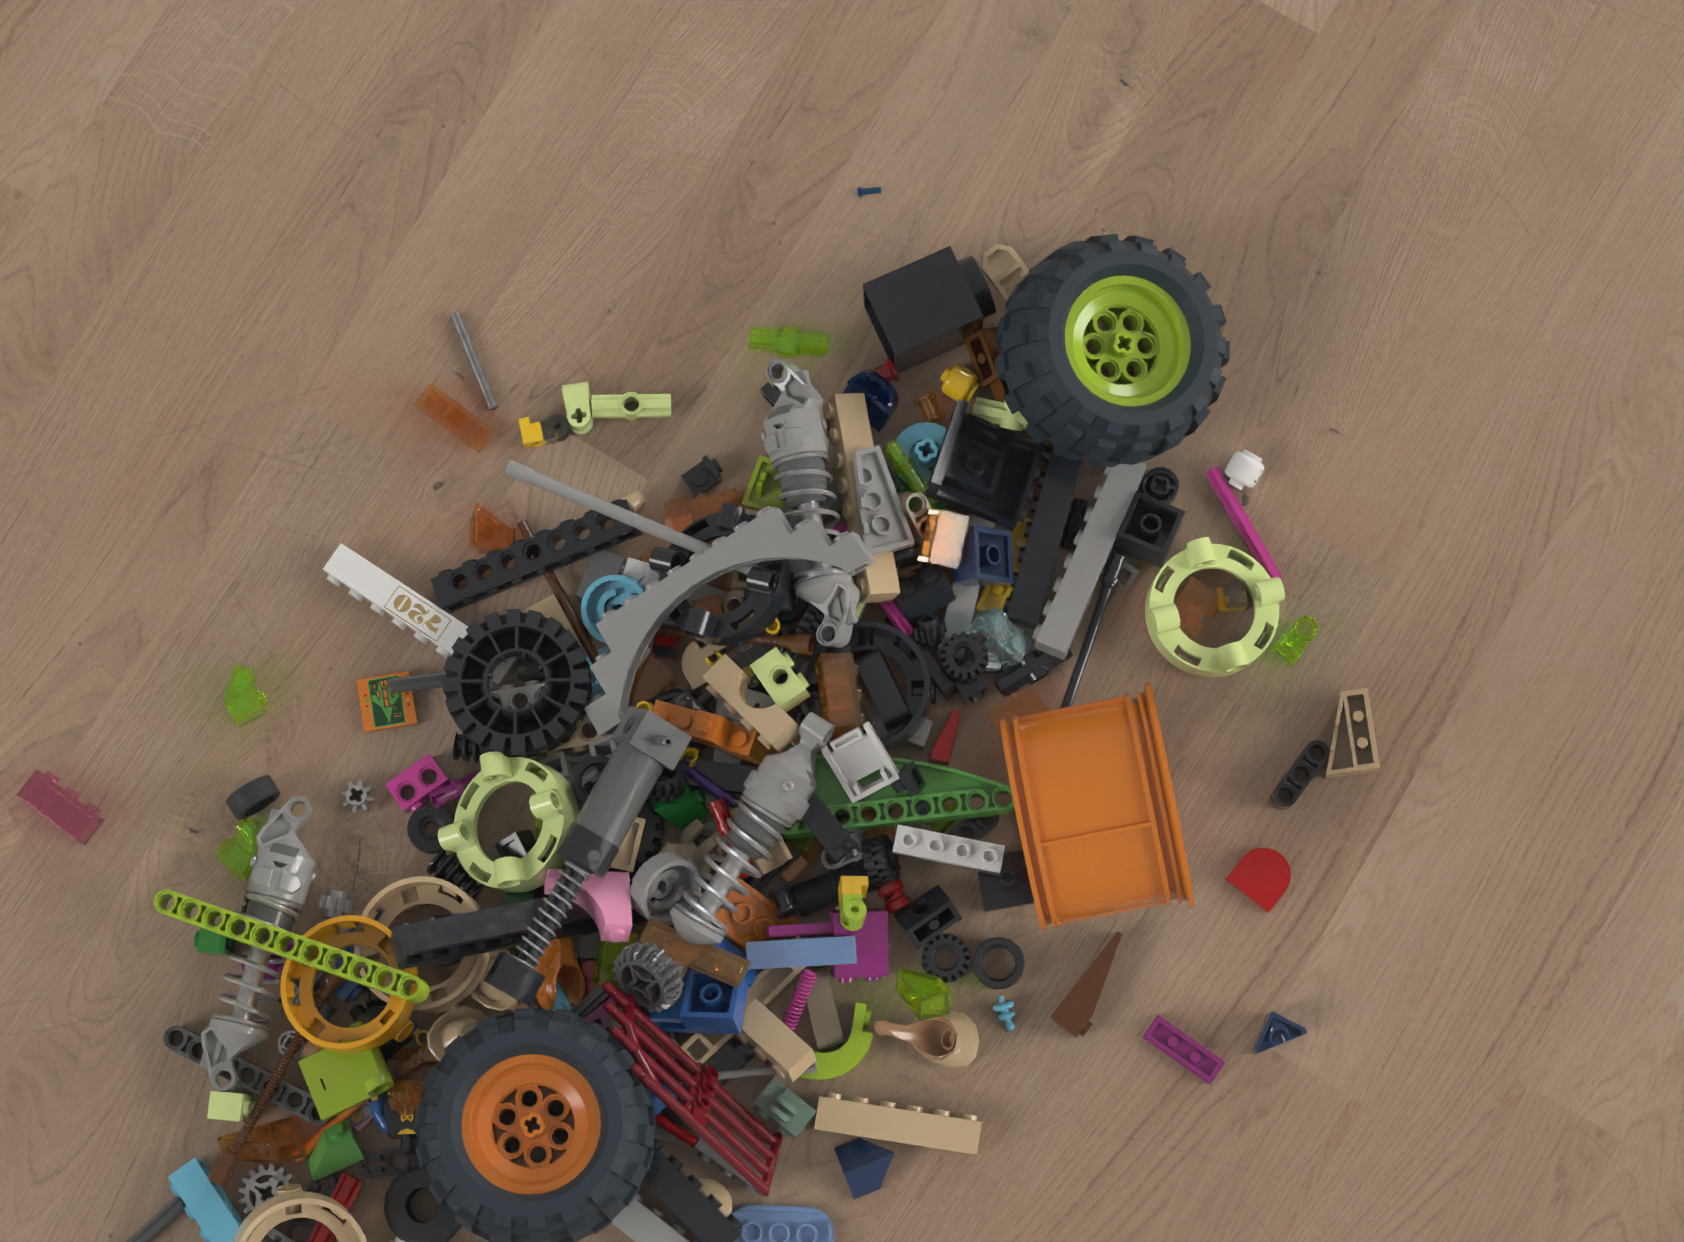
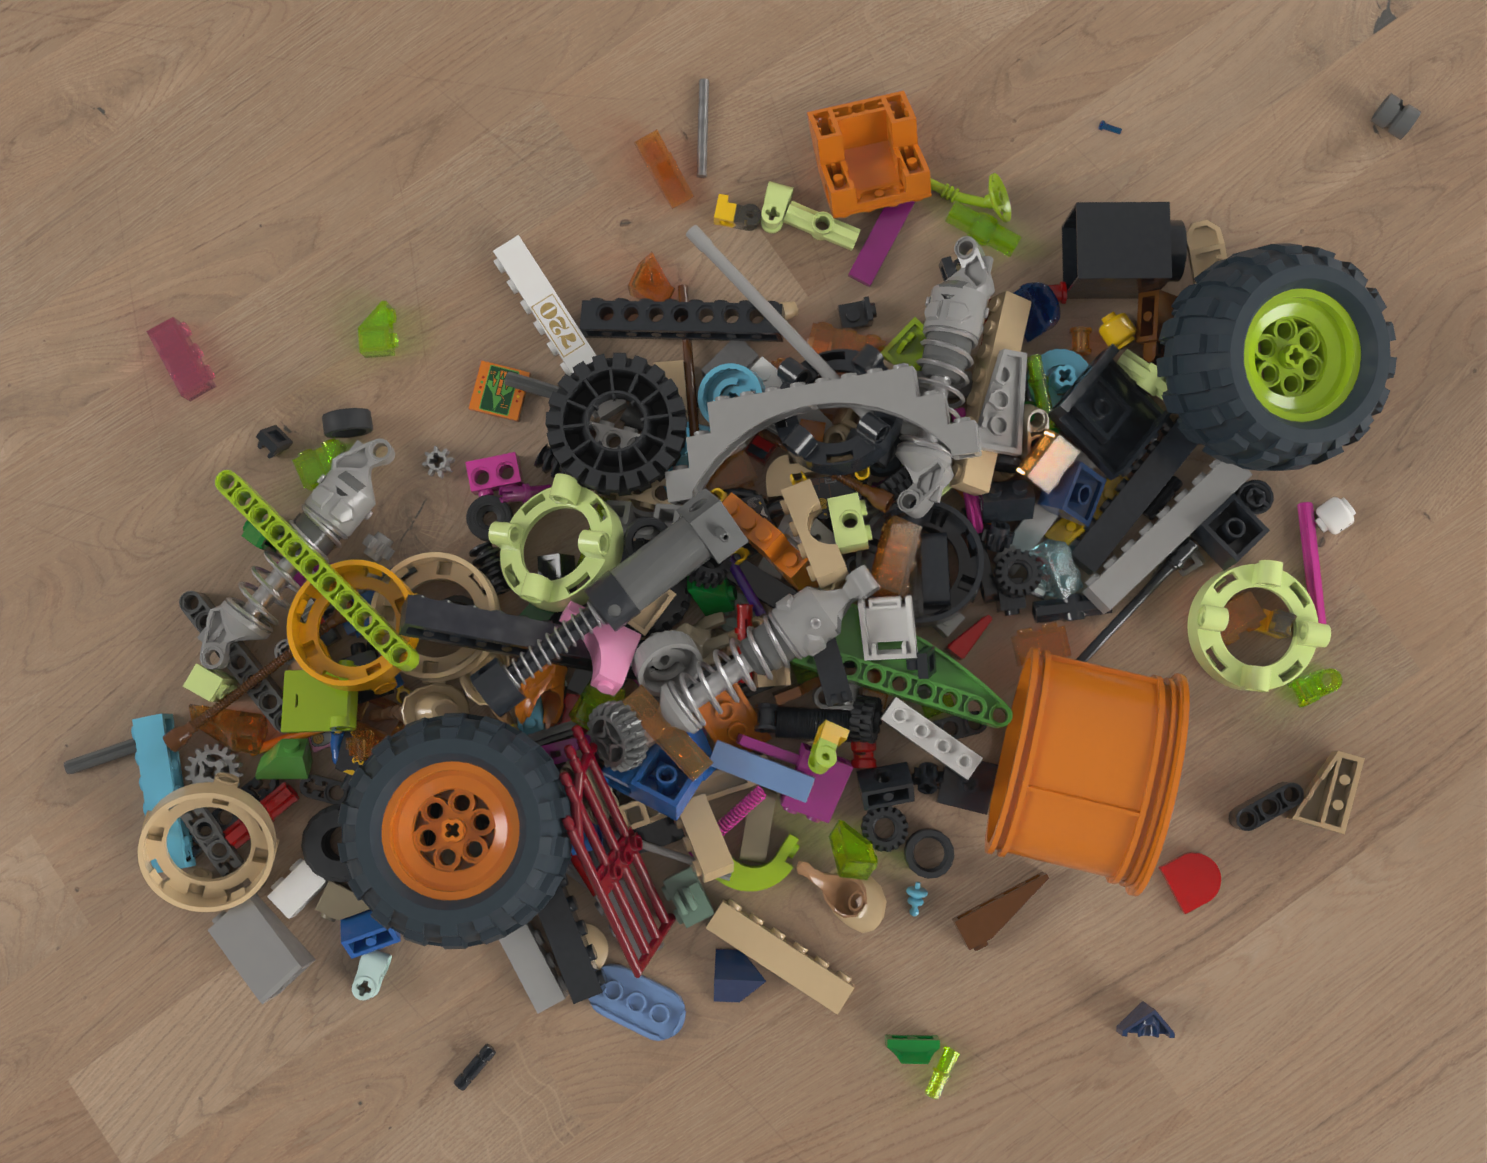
camera: 20 degrees right, 5 degrees up
(187, 846) = (274, 440): none -> black tile
(647, 318) = (869, 154): none -> orange slope
(694, 391) = (879, 243): none -> magenta tile
(788, 308) = (996, 199): none -> lime dish
(965, 891) = (927, 778): none -> black gear
(1063, 1156) = (913, 1048): none -> green slope
(1103, 1168) = (941, 1072): none -> clear neon green axle
(1135, 64) = (1395, 116): none -> dark grey wheel
(1183, 1049) = (1057, 1000): magenta tile -> none

